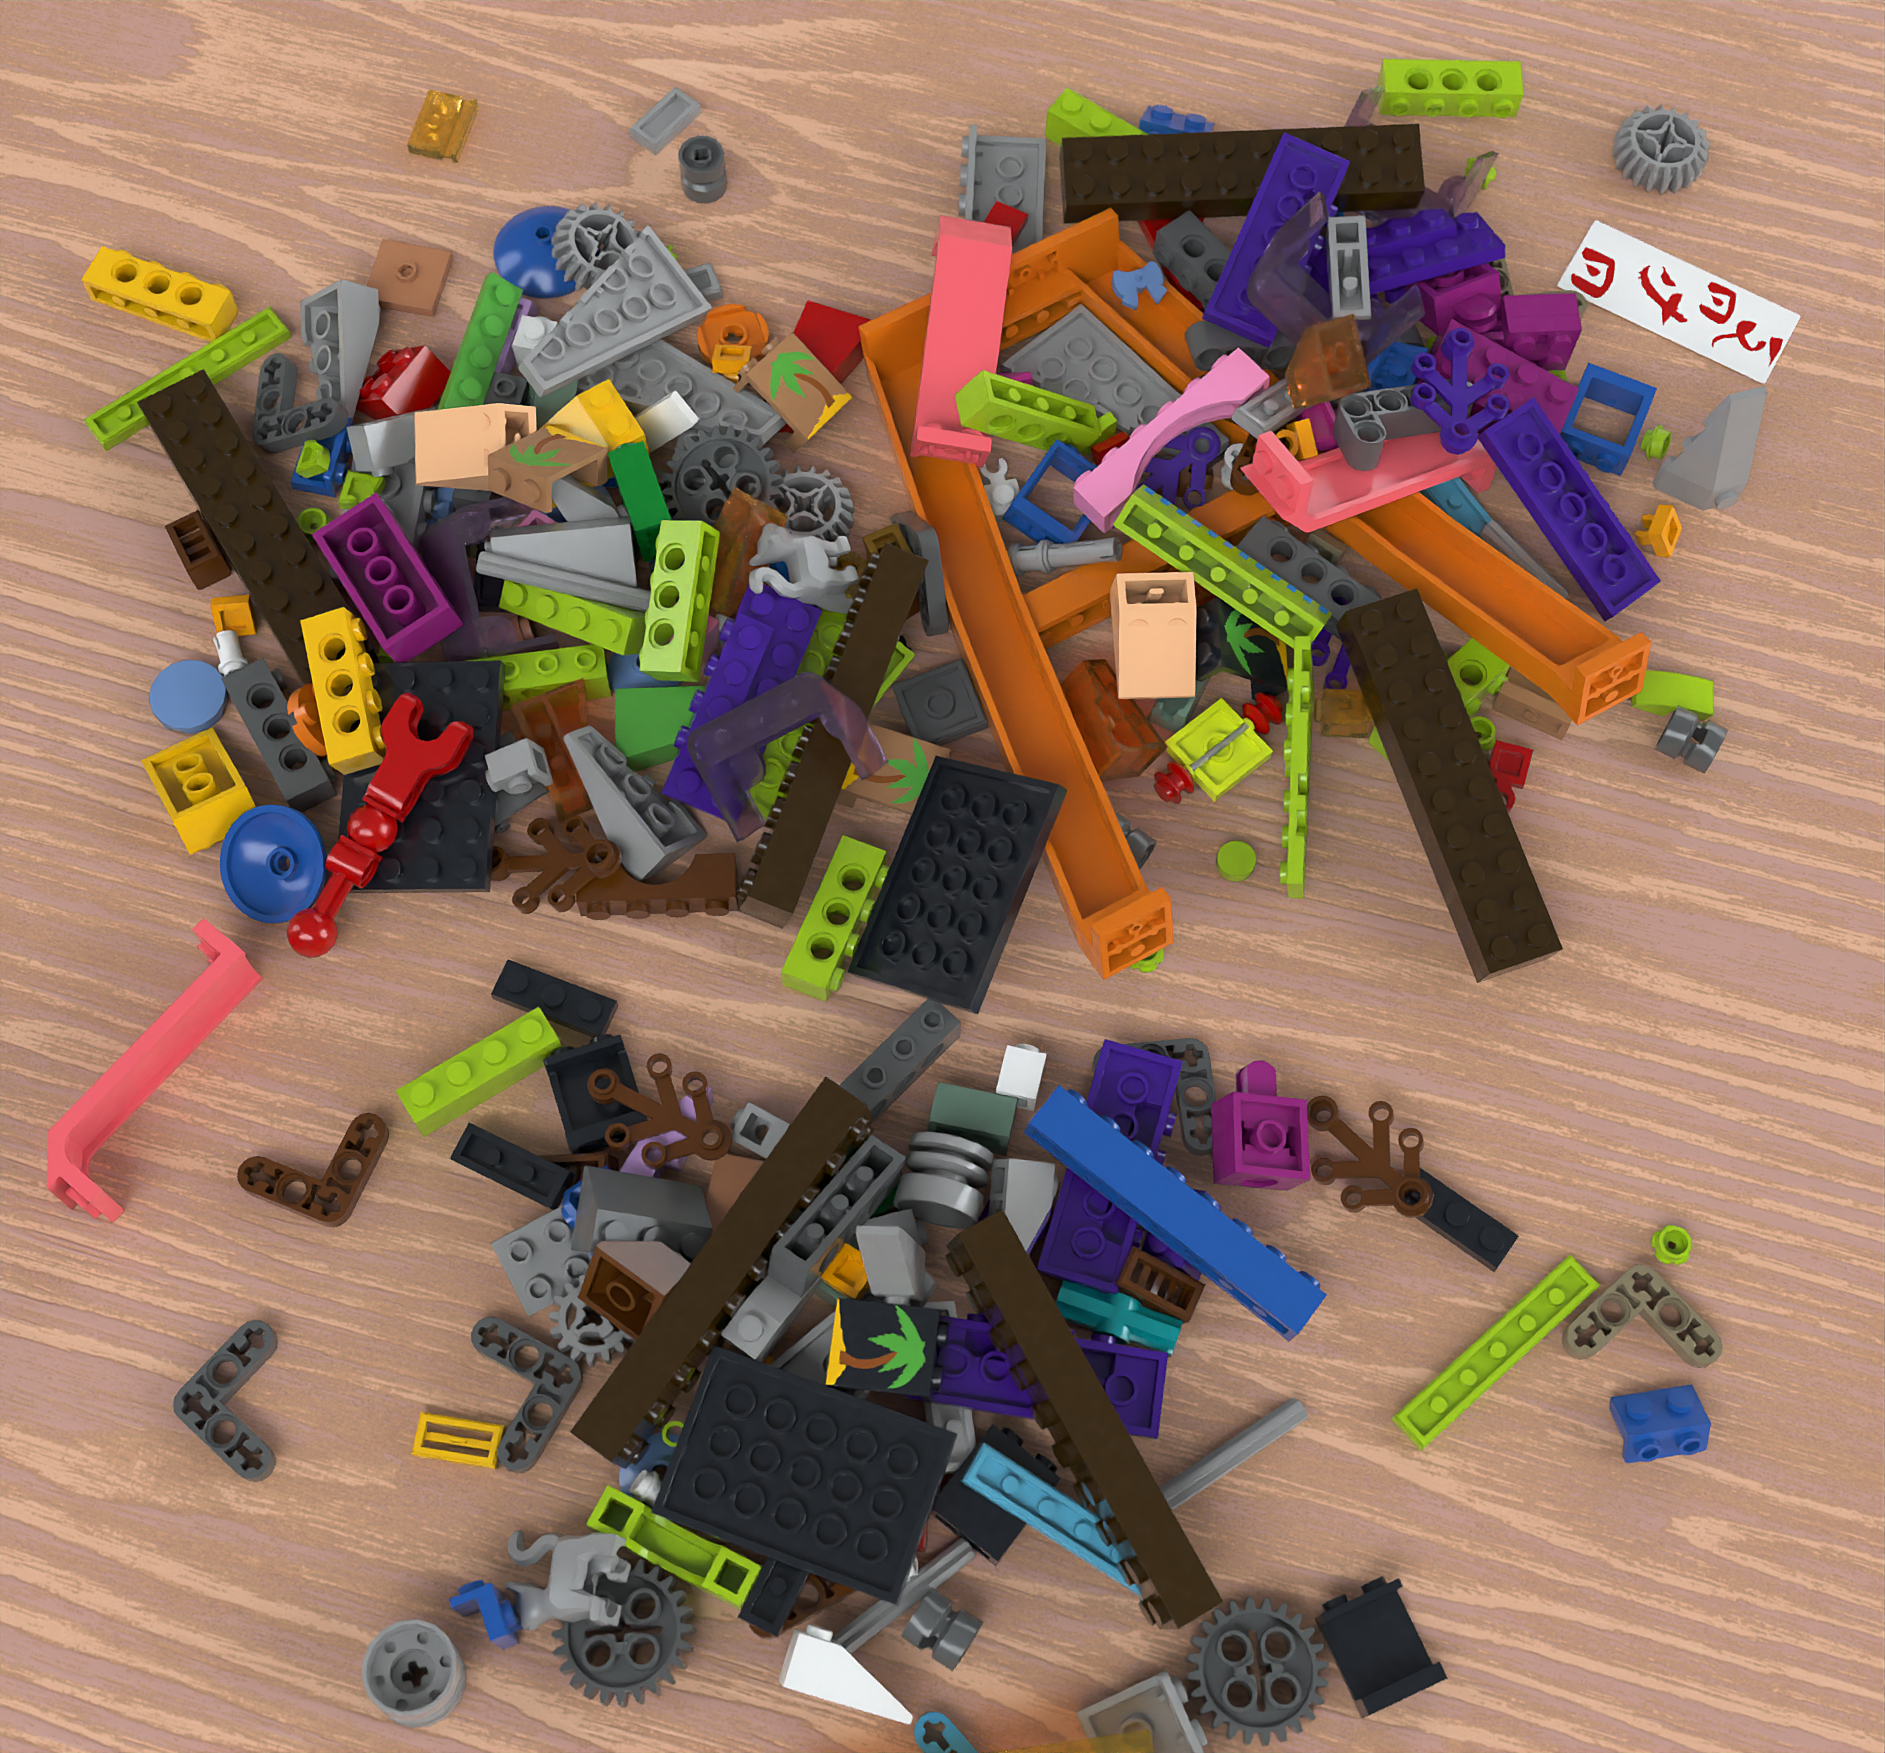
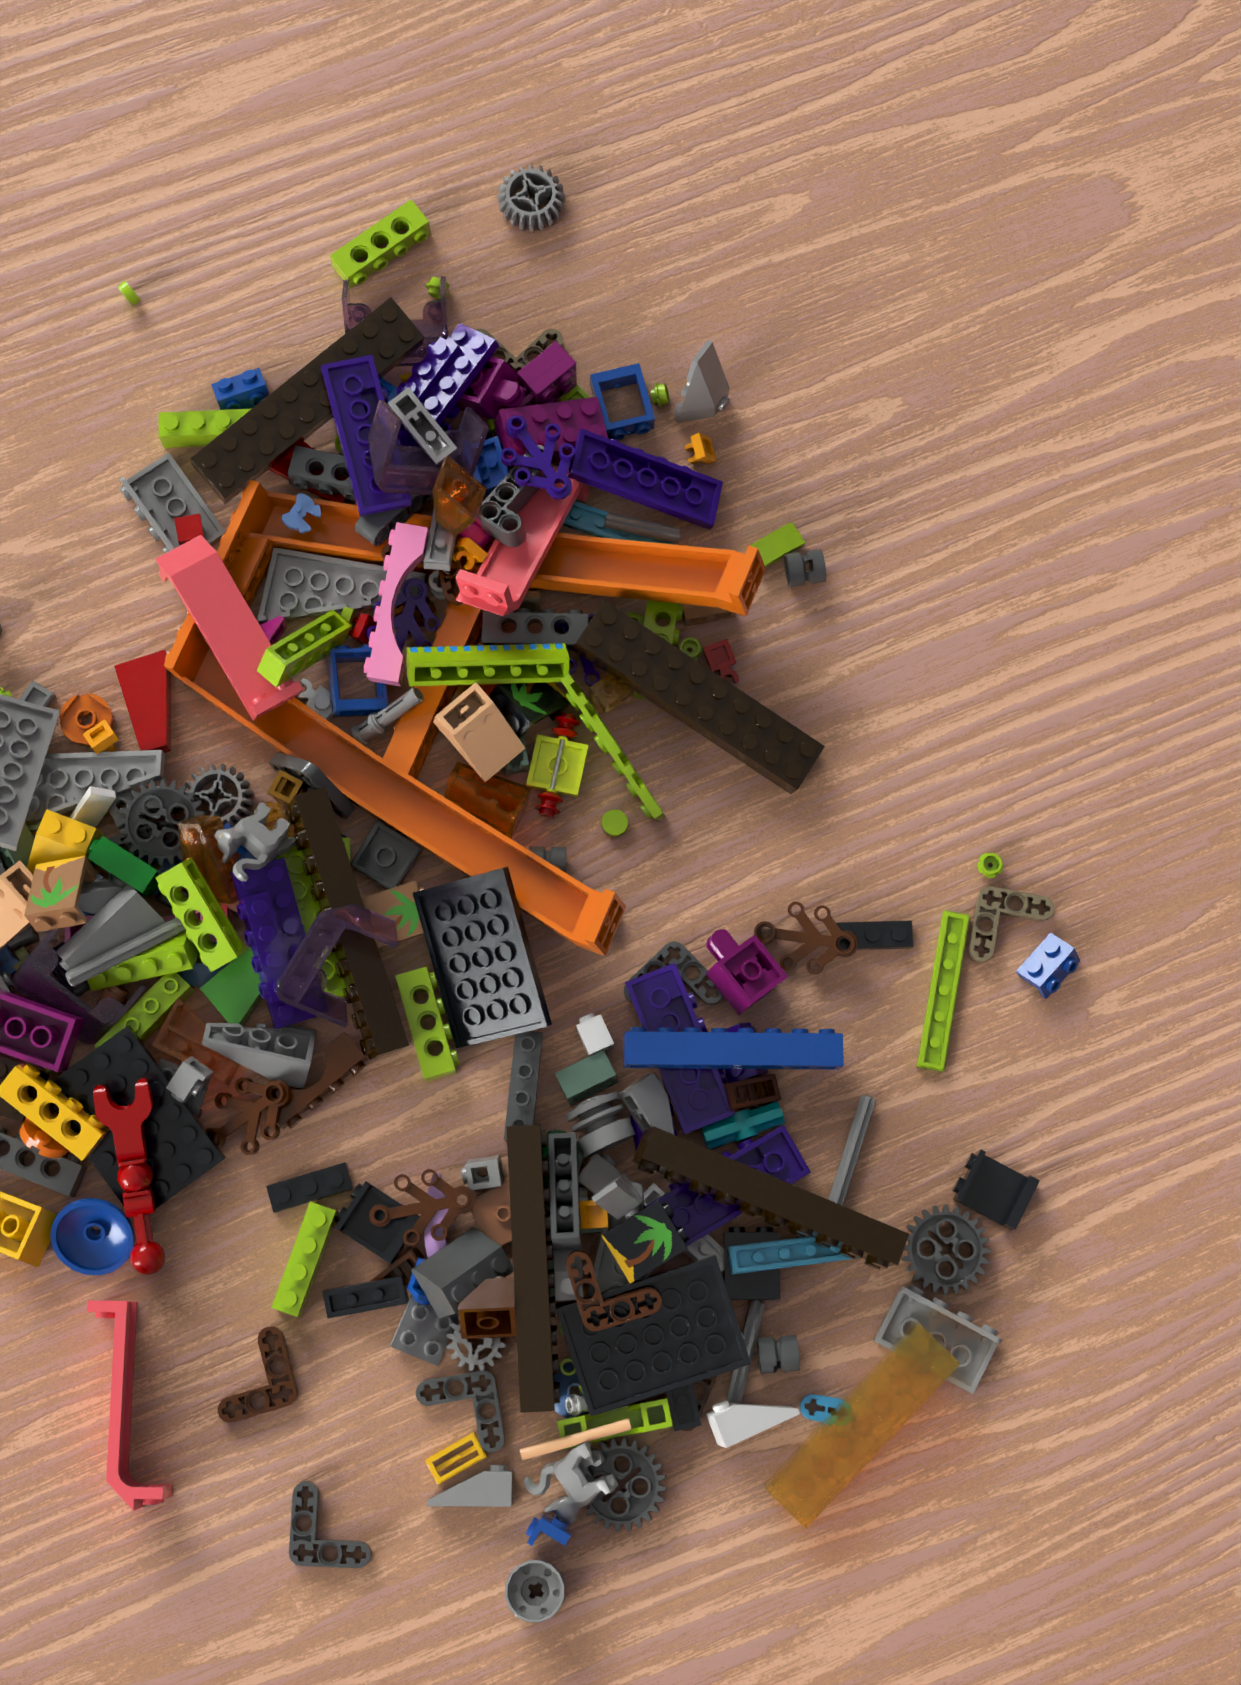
camera: 40 degrees left, 10 degrees up
(456, 1499) = (484, 1489): none -> light grey slope
(610, 1524) = (575, 1439): none -> light nougat bar
(768, 1371) = (596, 1302): none -> reddish brown beam
(795, 387) = (153, 728): medium nougat panel -> none
(1679, 301) = (608, 290): white sticker -> none

